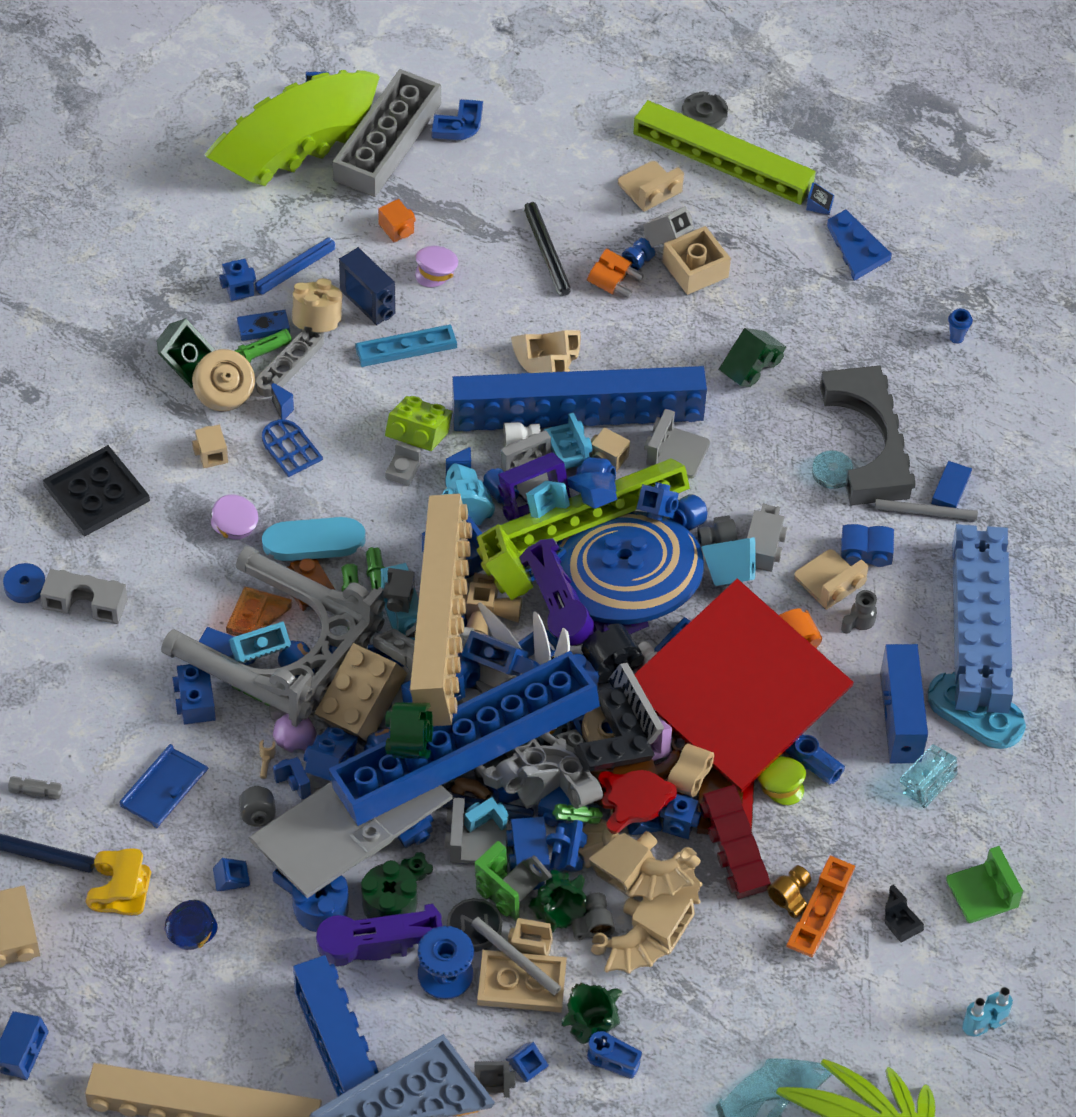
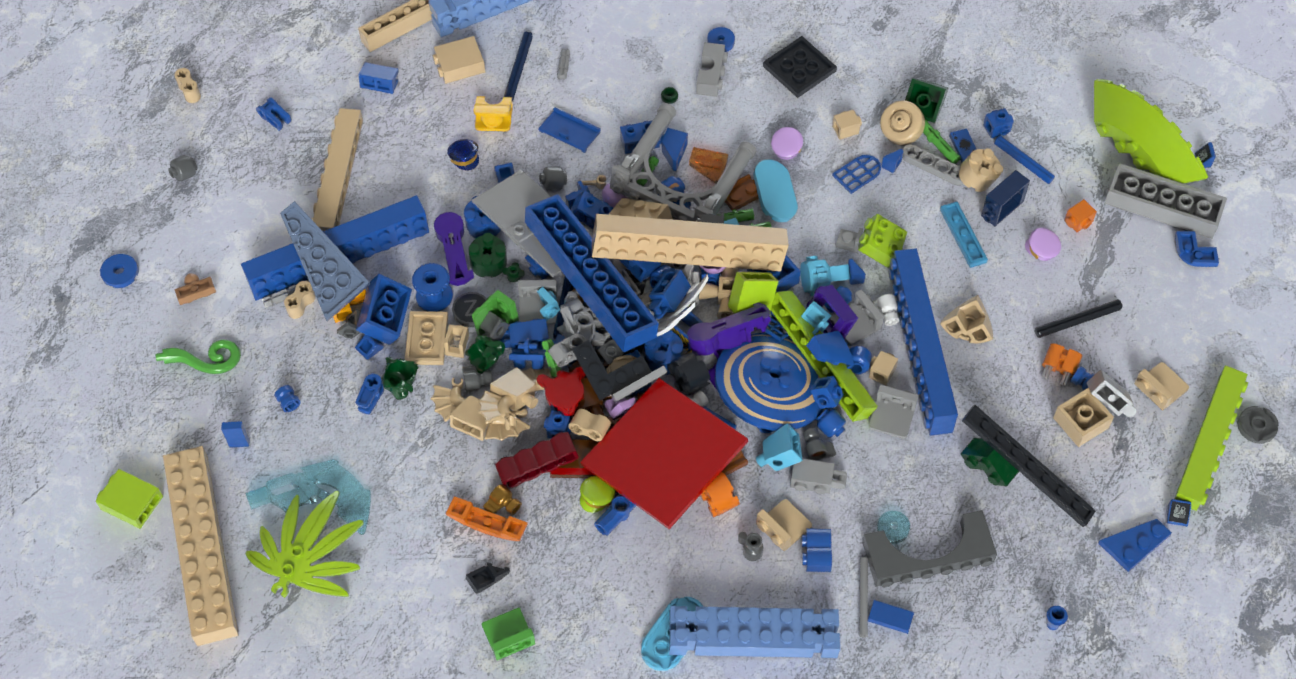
camera: 90 degrees right, 5 degrees up
(121, 647) = (669, 91): none -> dark green plate
(260, 642) = (668, 156): medium azure brick -> none
(409, 730) = (574, 225): dark green brick -> none
(481, 1025) = (384, 309): none -> blue brick
(516, 956) = (440, 329): light grey piece -> none
(570, 442) = (883, 339): medium azure bracket -> none
(770, 312) = (1028, 465): none -> black tile
(903, 703) = (663, 571): blue brick -> none
(929, 775) = (606, 595): clear light blue hinge -> none
(990, 1013) = (400, 632): medium azure piece -> none

